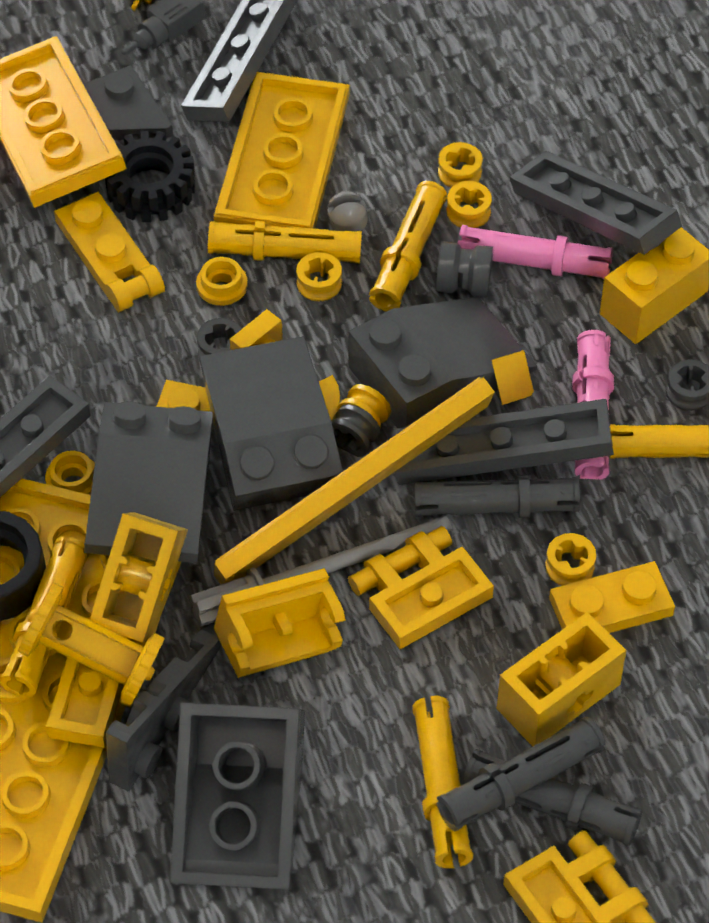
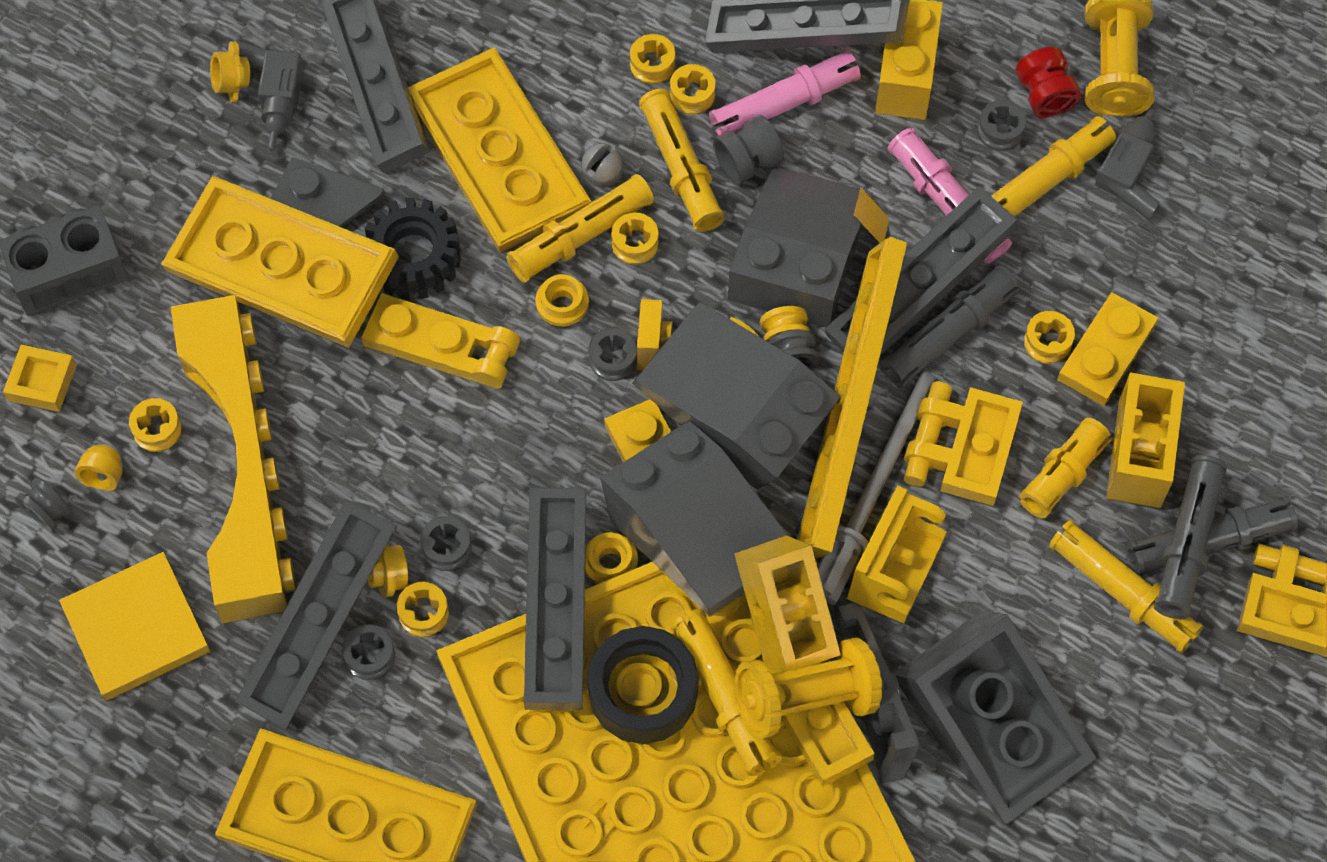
camera: 40 degrees left, 10 degrees up
(477, 661) = (1065, 468): none -> yellow pin

